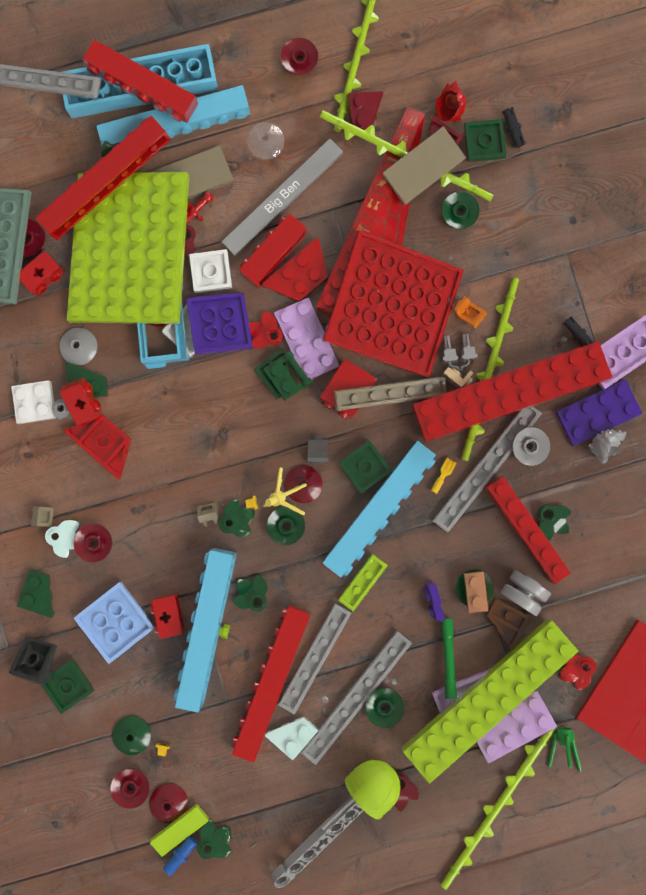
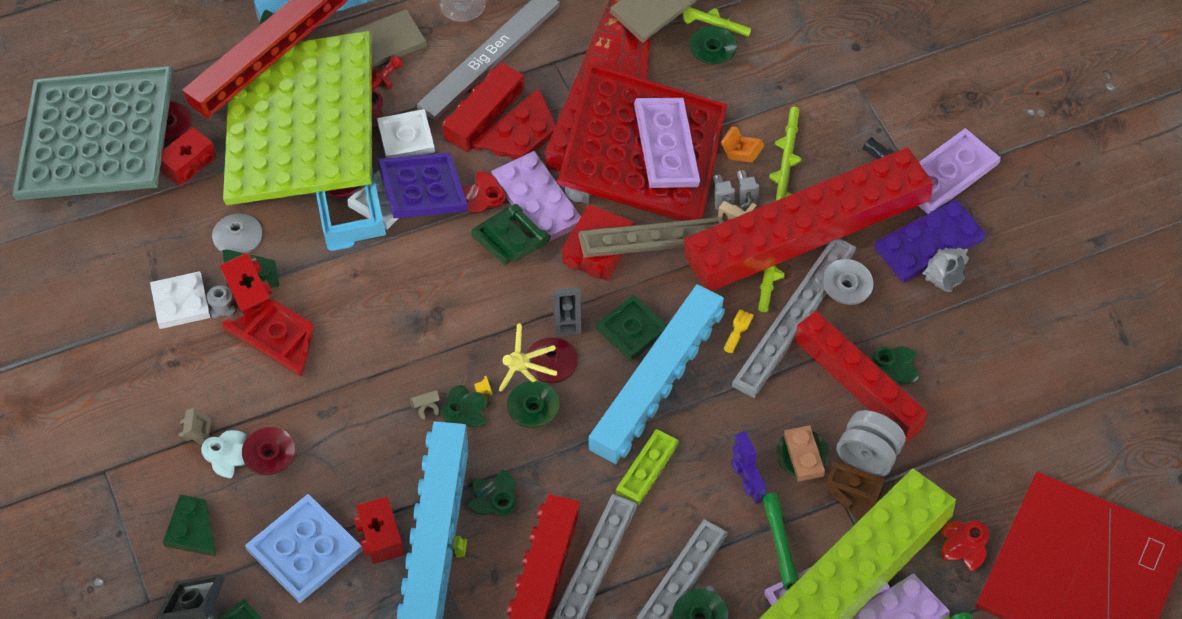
camera: 10 degrees left, 30 degrees down
(411, 310) = (666, 142): none -> lavender plate

